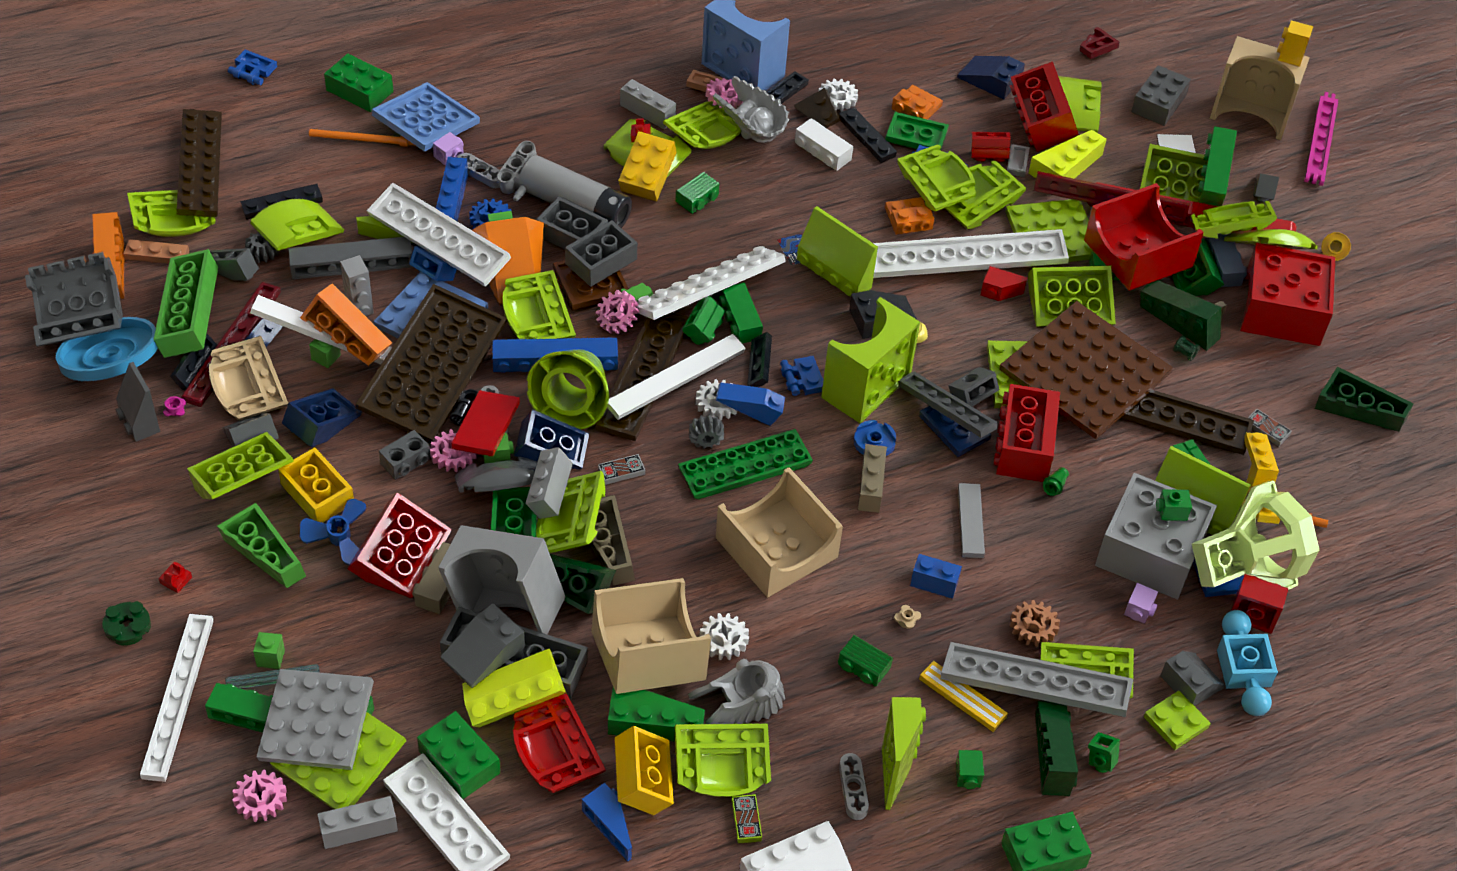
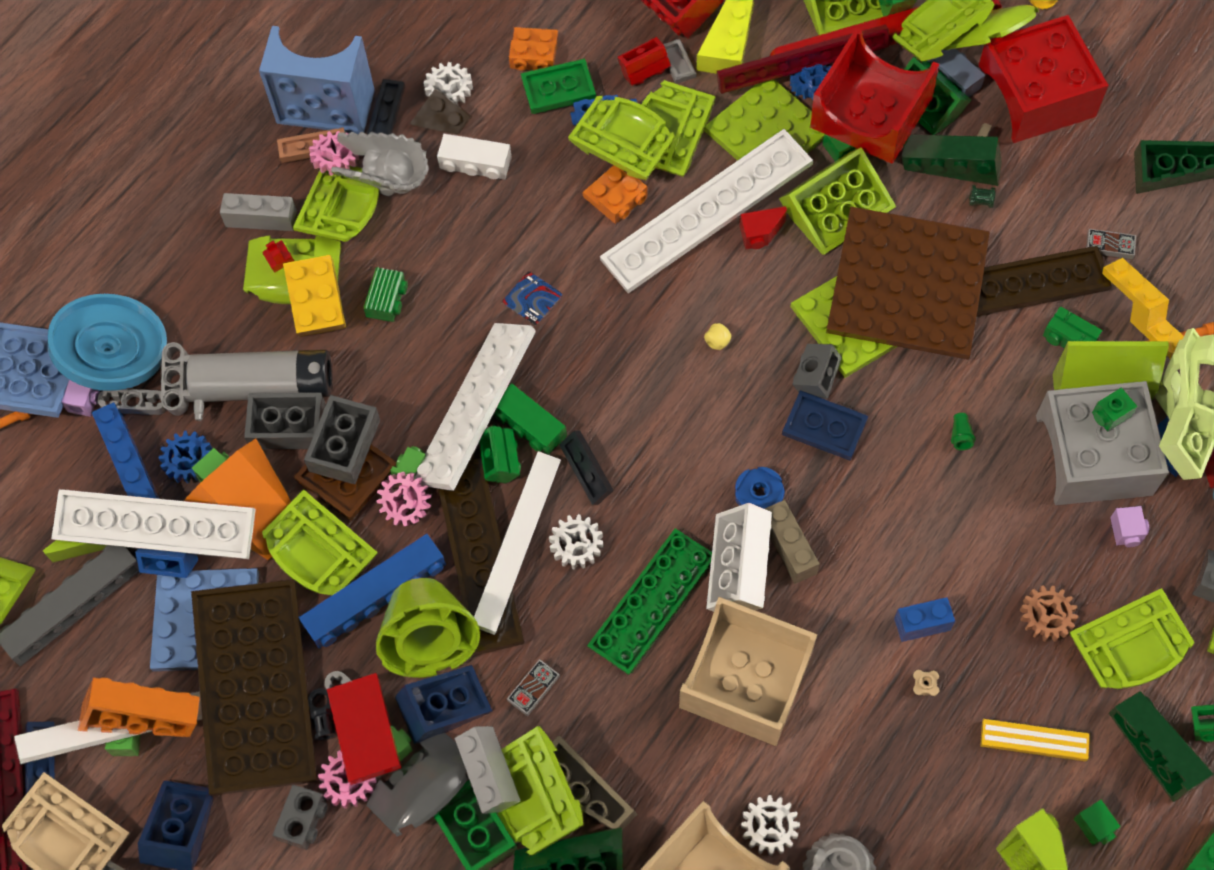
camera: 25 degrees left, 15 degrees up
(357, 284) = (109, 646): light grey brick -> none
(487, 123) = (106, 342): none -> dark azure container
(706, 431) = (593, 591): dark grey gear -> none
(753, 401) = (615, 527): blue slope -> none
(808, 374) = (643, 452): blue plate -> none
(831, 460) = (740, 556): none -> white brick
(837, 253) = (584, 293): lime slope -> none
(864, 306) = (668, 333): black slope -> none
(864, 661) = (922, 764): green brick -> none
(867, 135) = (508, 116): black plate -> none
(868, 373) = (709, 441): lime container -> none
(948, 404) = (811, 411): dark grey plate -> none
(971, 520) = (911, 528): light grey tile -> none
(1027, 433) = (905, 395): red brick -> none
(1037, 679) = (1099, 683): light grey plate -> none

